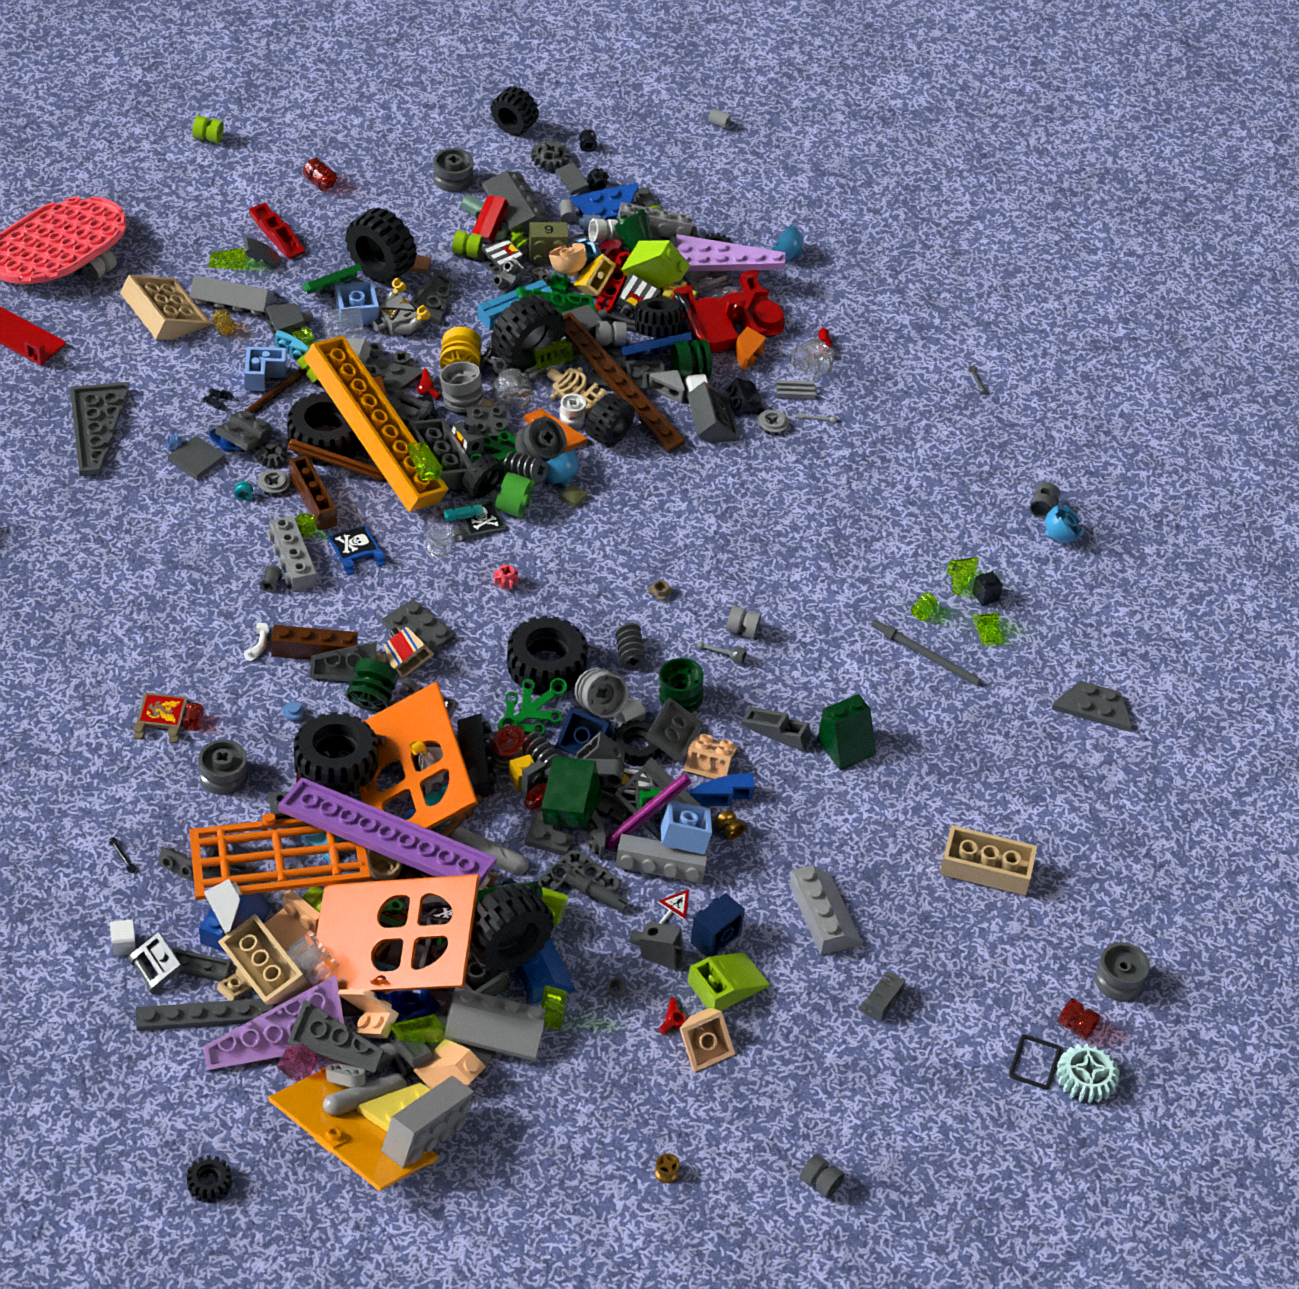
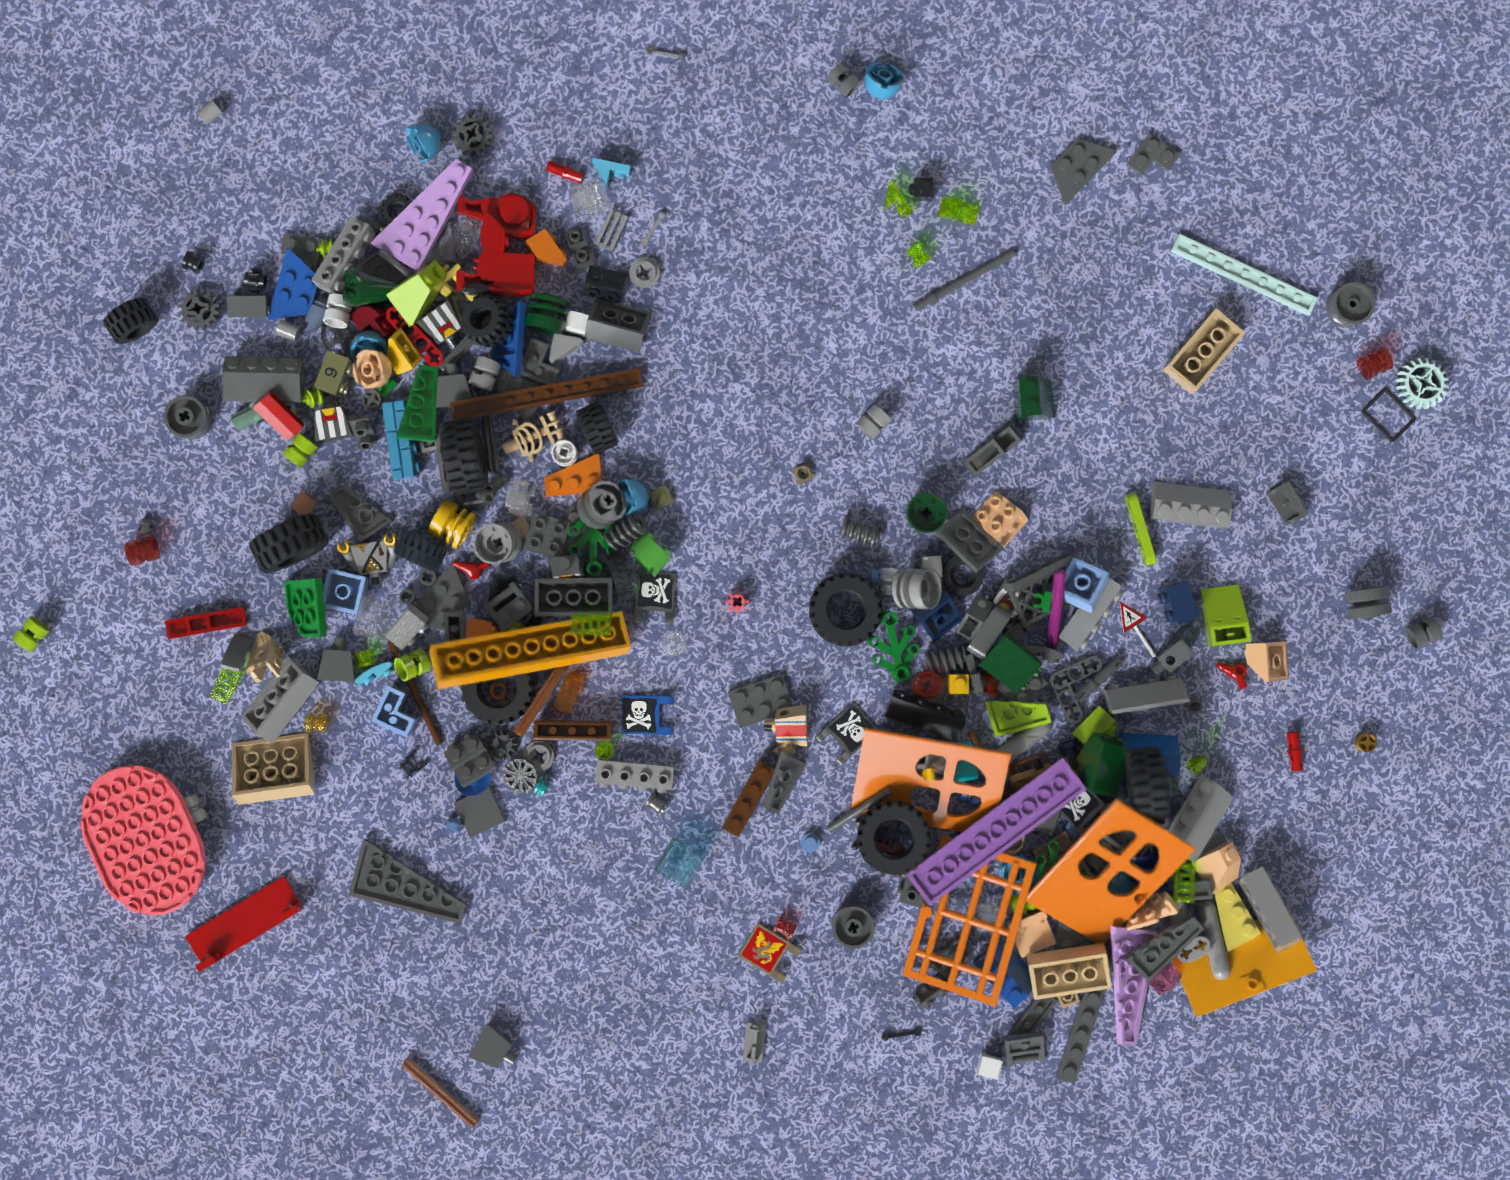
camera: 60 degrees left, 40 degrees up
(52, 733) = (754, 1042): none -> light grey hinge
(209, 1191) = (1240, 1088): black tyre -> none
(221, 611) = (680, 862): none -> clear light blue slope
(224, 902) = (1014, 989): white slope -> none
(248, 471) = (521, 775): none -> wheel
(260, 267) = (272, 656): none -> tan piece
(263, 630) = (731, 851): white piece -> none
(311, 958) = (1092, 939): clear brick -> none
(342, 172) = (144, 526): none -> dark grey hinge
(342, 482) = (569, 691): none -> clear orange slope
(372, 684) = (823, 773): dark green wheel -> none
(423, 336) = (420, 550): none -> black wheel
(463, 512) = (648, 607): teal axle -> none
(517, 831) = (1016, 715): none -> lime wing
(560, 358) = (488, 436): clear neon green slope -> none
(600, 935) = (1145, 695): none -> light grey slope
(619, 1102) = (1294, 751): none -> red pin
(724, 789) = (1042, 528): blue slope -> none
(728, 822) = (1078, 539): pearl gold wheel -> none
(737, 654) = (902, 444): hinge -> none
(766, 372) = (579, 248): none -> dark grey slope
(773, 874) = (1140, 529): none -> lime beam
(814, 275) = (470, 142): none -> dark grey gear
(823, 1100) = (1368, 602): none -> dark grey wheel
(847, 368) = (605, 169): none -> medium azure slope
(1089, 878) = (1244, 274): none -> light aqua tile
(1152, 756) = (1152, 150): none -> dark grey plate

